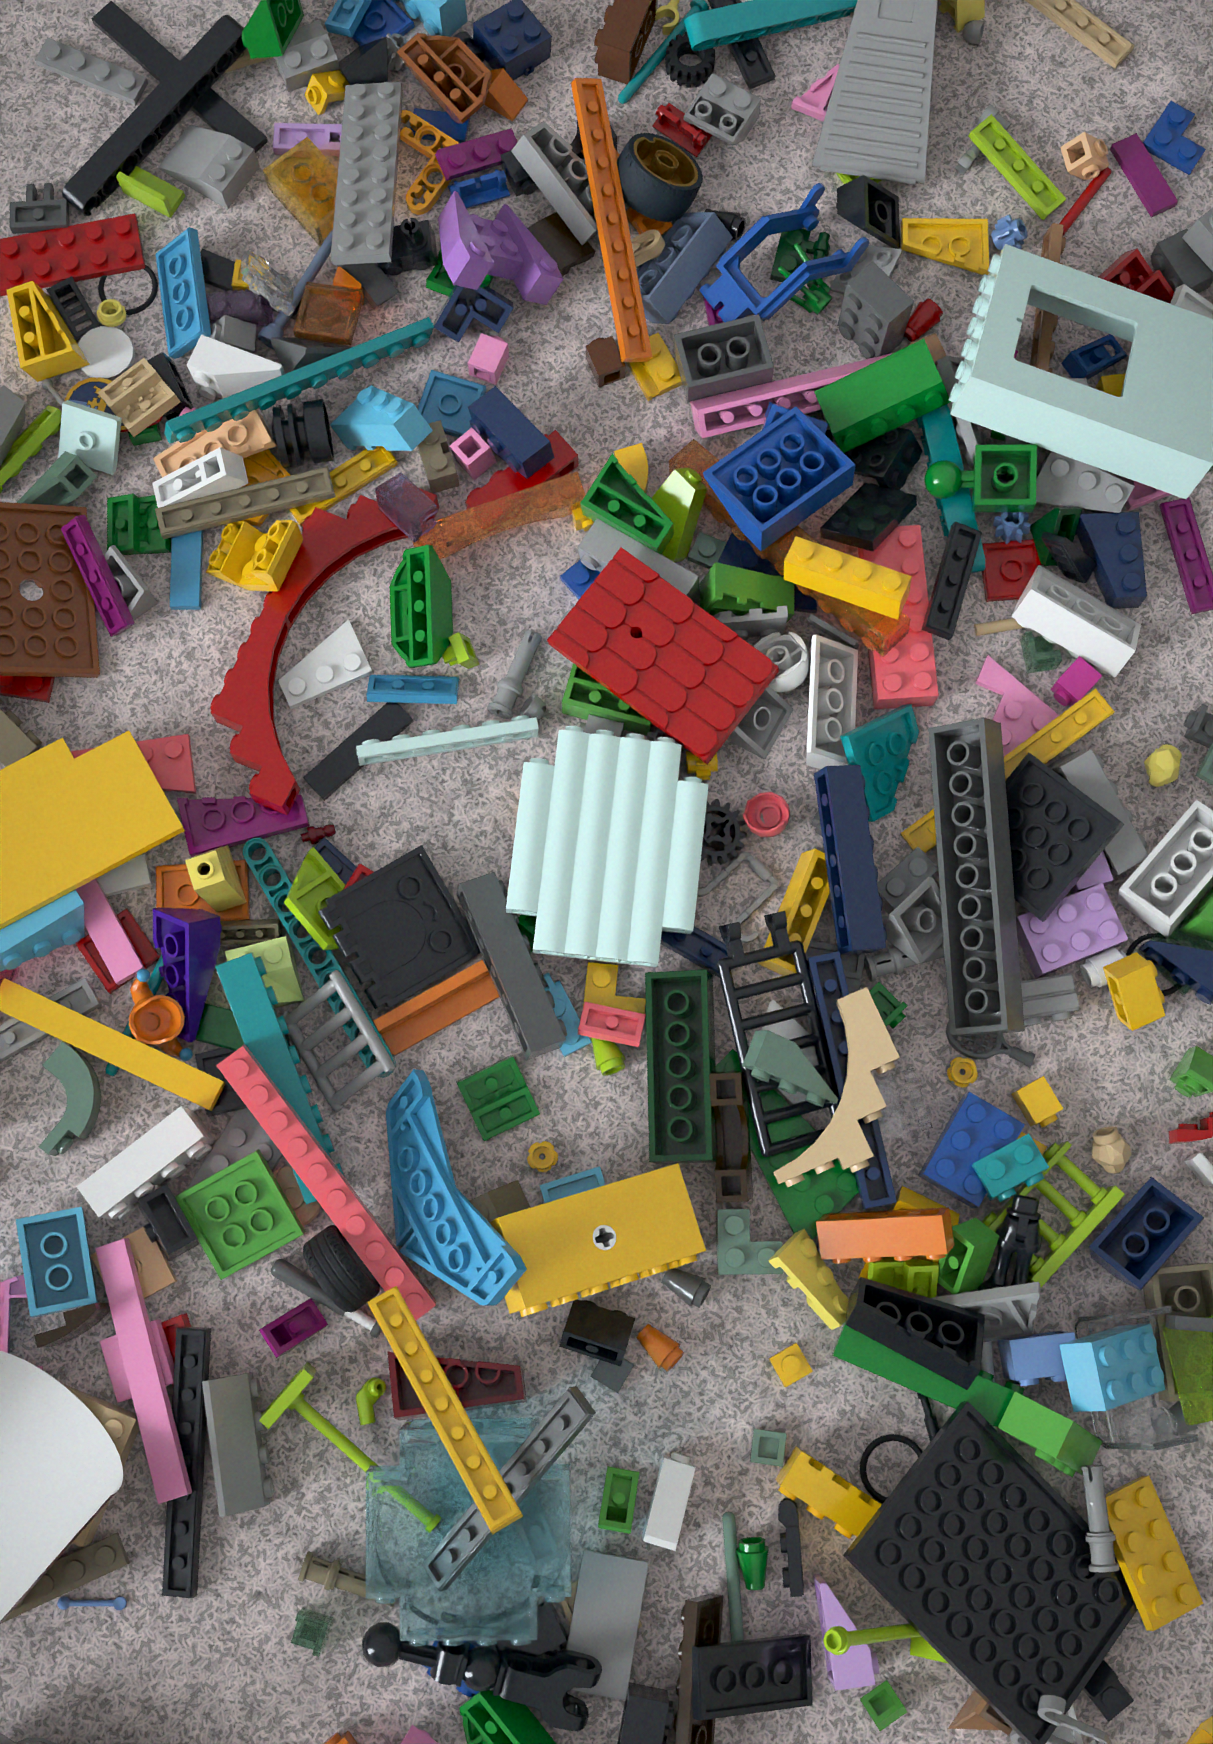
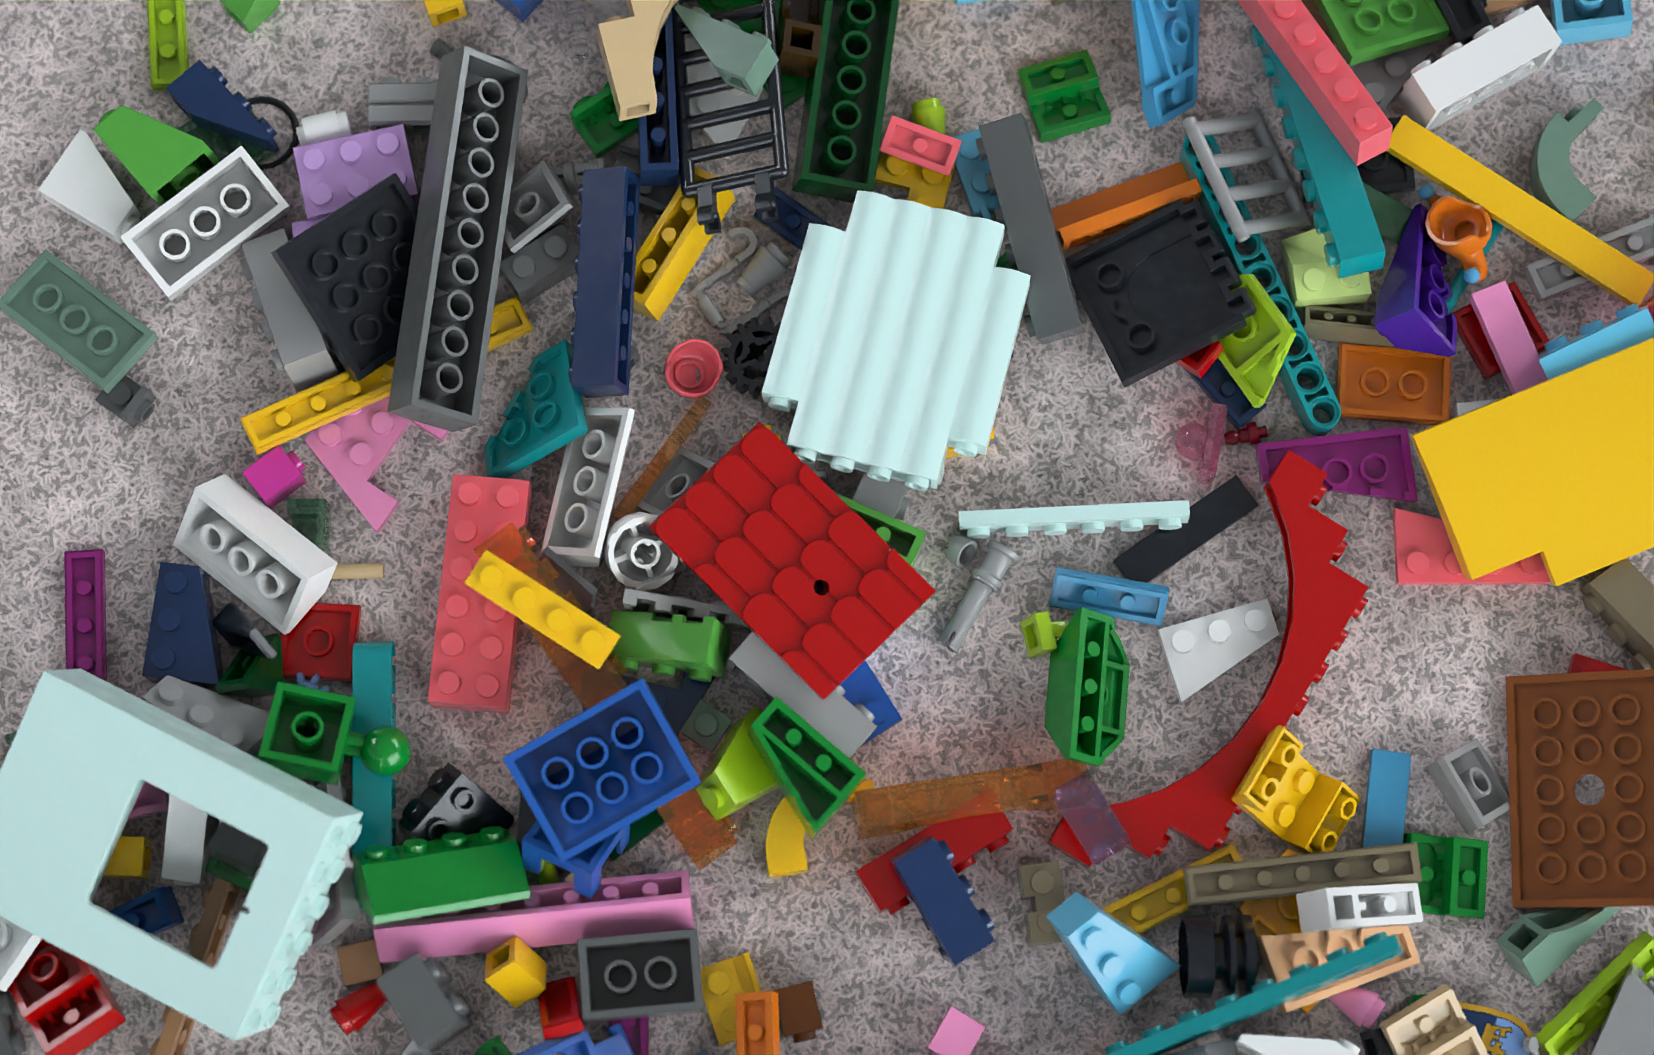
camera: 175 degrees left, 0 degrees up
(90, 436) = (1503, 999): light aqua plate -> none
(97, 575) = (1502, 801): magenta tile -> none
(219, 882) = (1378, 373): light yellow slope -> none
(350, 818) = (1203, 442): none -> clear pink tile
(448, 400) = (1015, 985): dark azure tile -> none
(473, 453) = (997, 895): bright pink brick -> none
(542, 1148) = (1017, 15): yellow plate -> none
(724, 907) = (763, 269): none -> light grey cone
(778, 331) = (560, 1008): none -> red tile
(778, 743) = (662, 458): none -> clear orange bar
(814, 352) = (515, 972): none -> yellow brick
(868, 516) = (491, 721): black plate -> none
(951, 580) = (403, 617): black tile -> none
(970, 1075) = (515, 35): yellow plate -> none
(1135, 991) = (298, 92): yellow brick -> none
(1163, 765) = (194, 356): light yellow rock -> none

